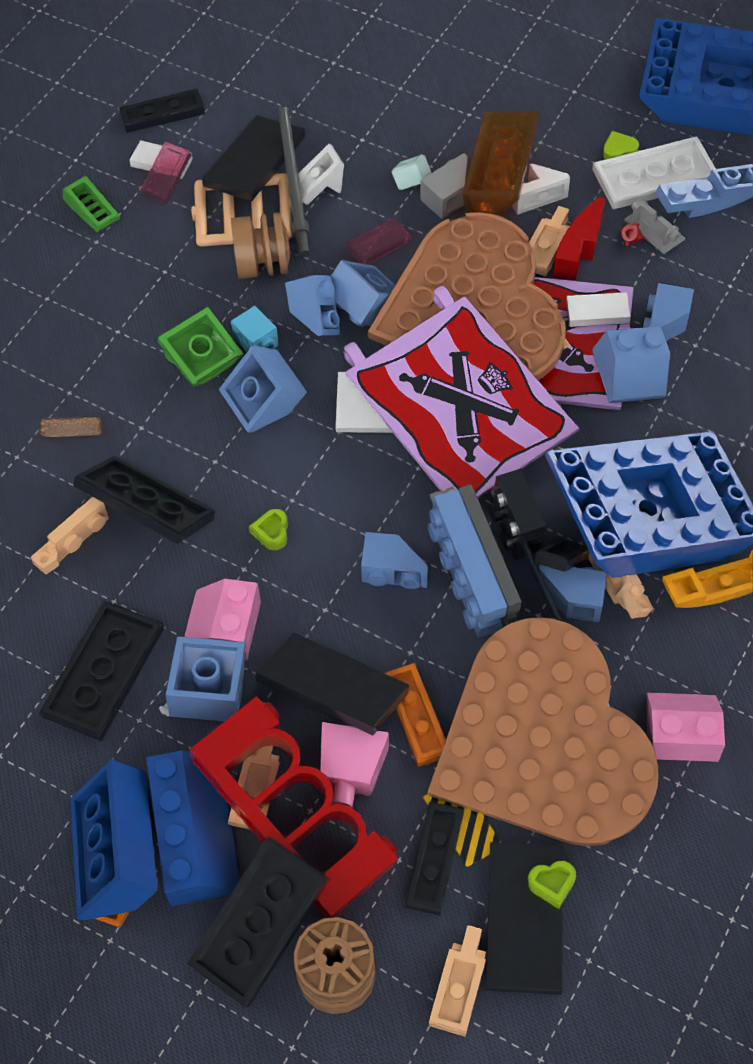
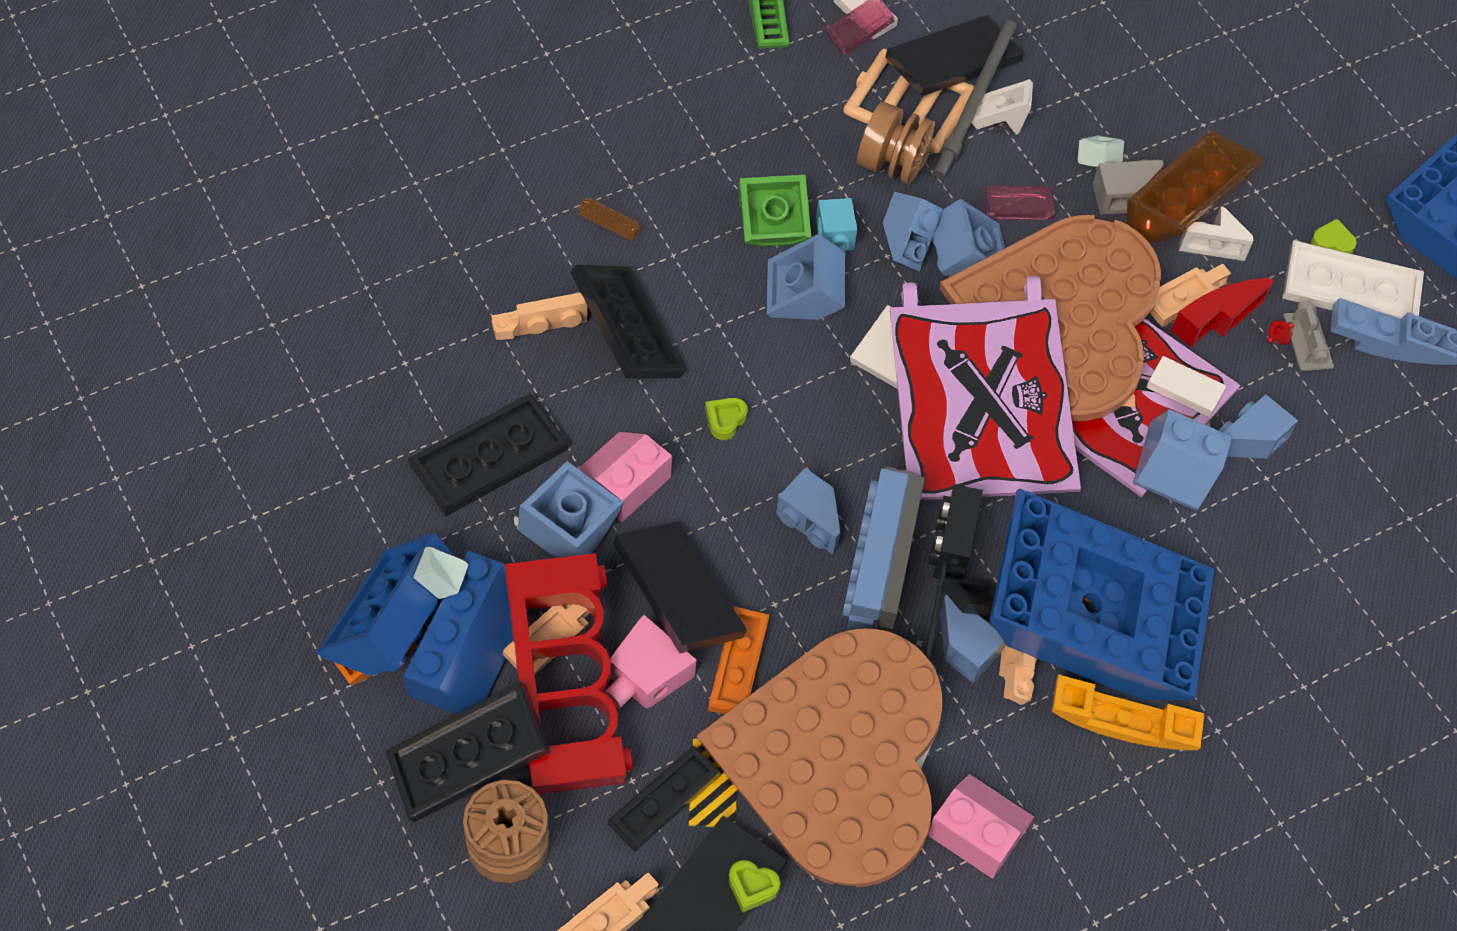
camera: 25 degrees right, 0 degrees up
(139, 788) = (440, 572): none -> light aqua slope

